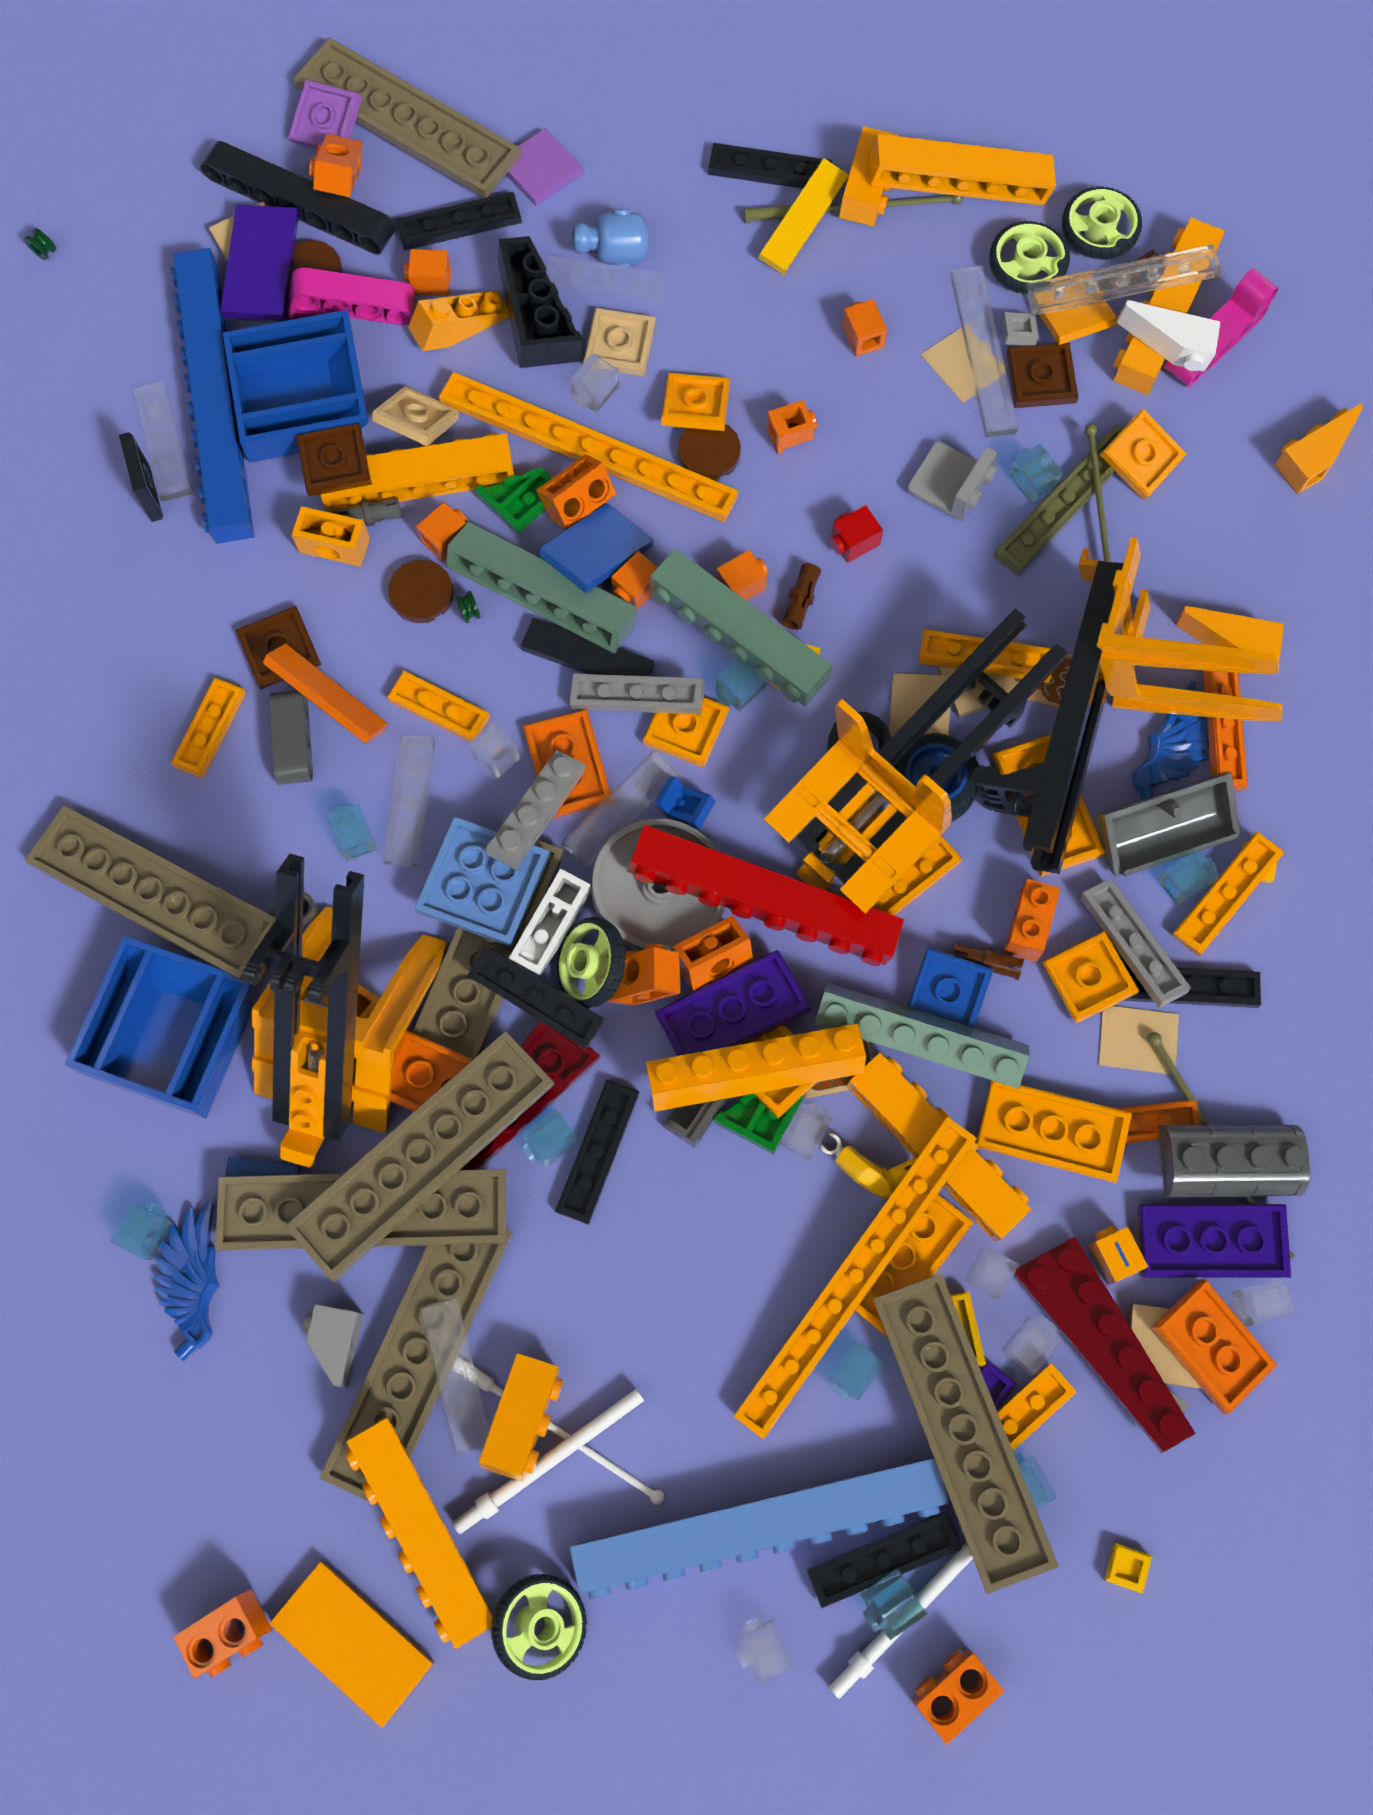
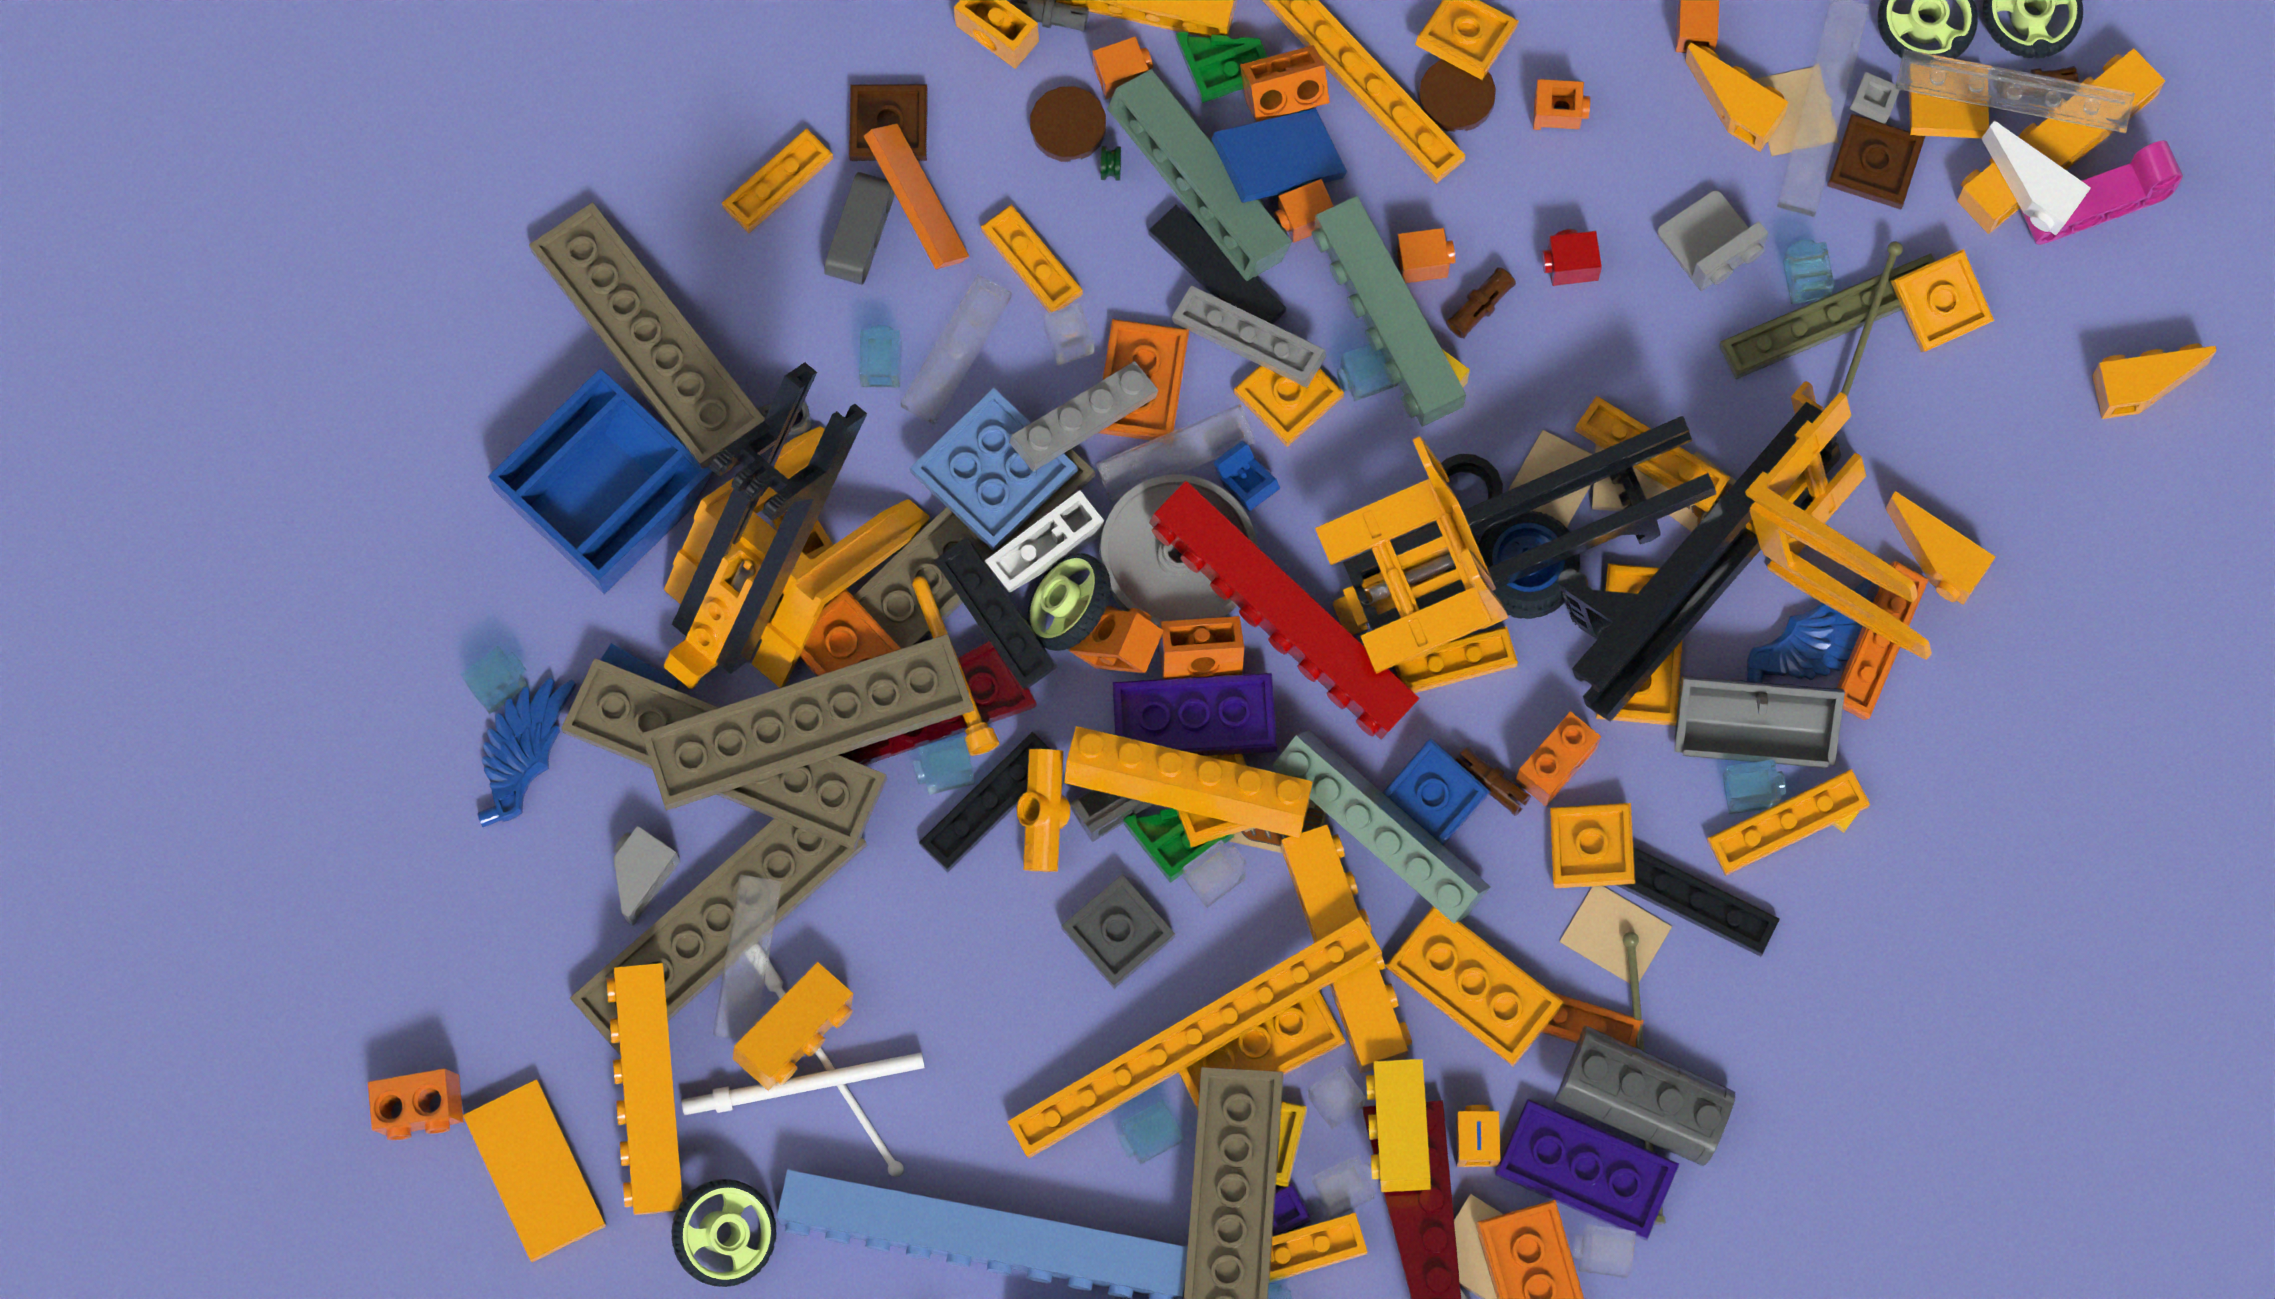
camera: 25 degrees right, 0 degrees up
(567, 1103) = (979, 735): none -> light orange piece
(646, 1141) = (1043, 810): none -> light orange piece
(750, 1213) = (1118, 931): none -> dark grey plate
(866, 1173) = (1252, 936): yellow arm -> none
(922, 370) = (1741, 103): none -> light orange slope
(1057, 1275) = (1399, 1125): none -> yellow brick
(1135, 943) = (1656, 829): light grey plate -> none

